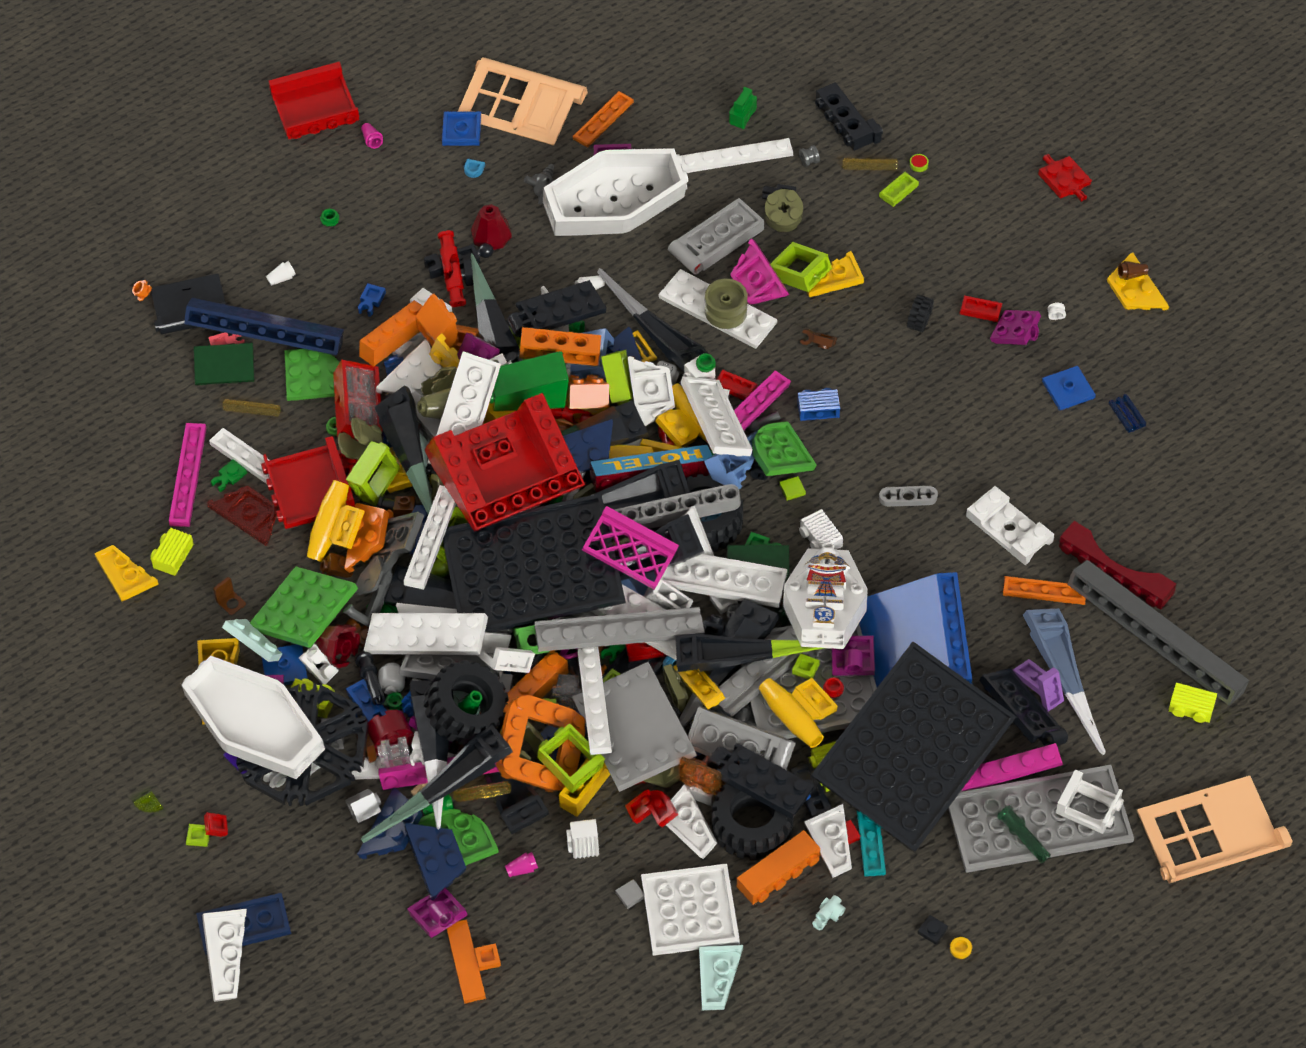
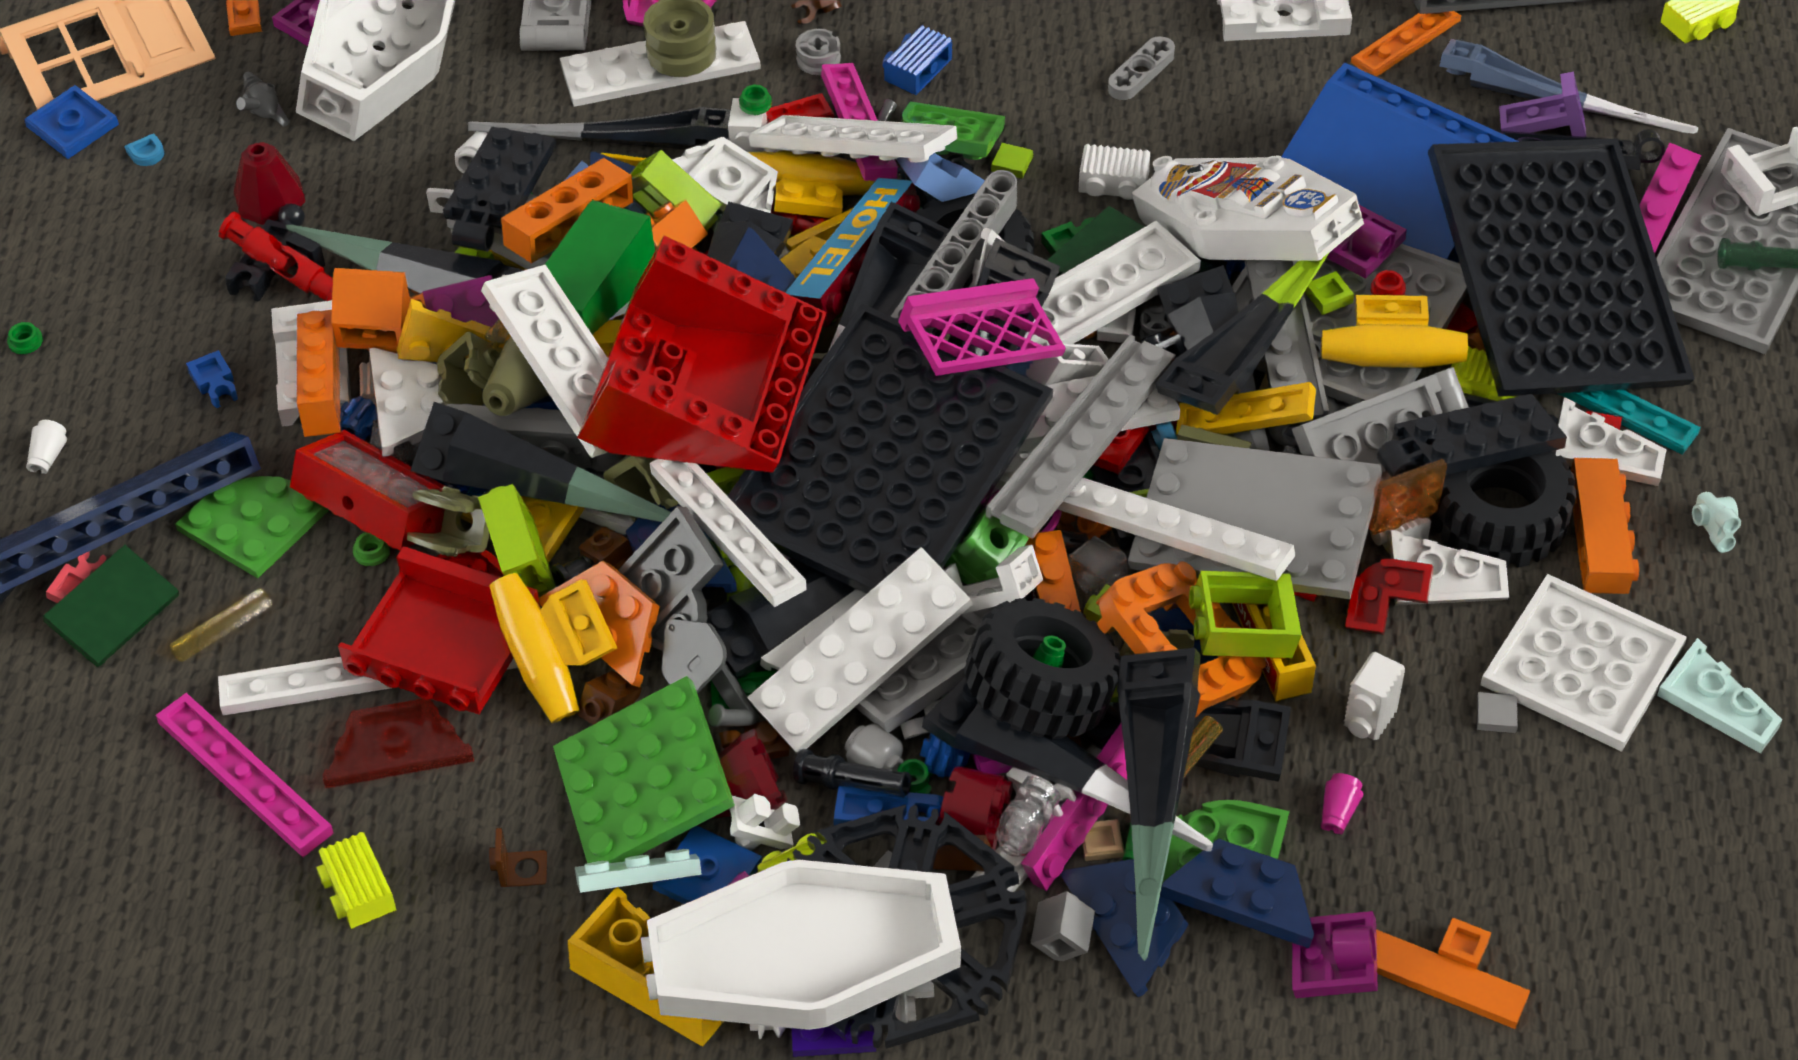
camera: 50 degrees left, 5 degrees down
(123, 574) = (325, 973): yellow wing -> none
(230, 474) = (301, 722): green plate -> none
(785, 361) = (815, 49): none -> light grey wheel

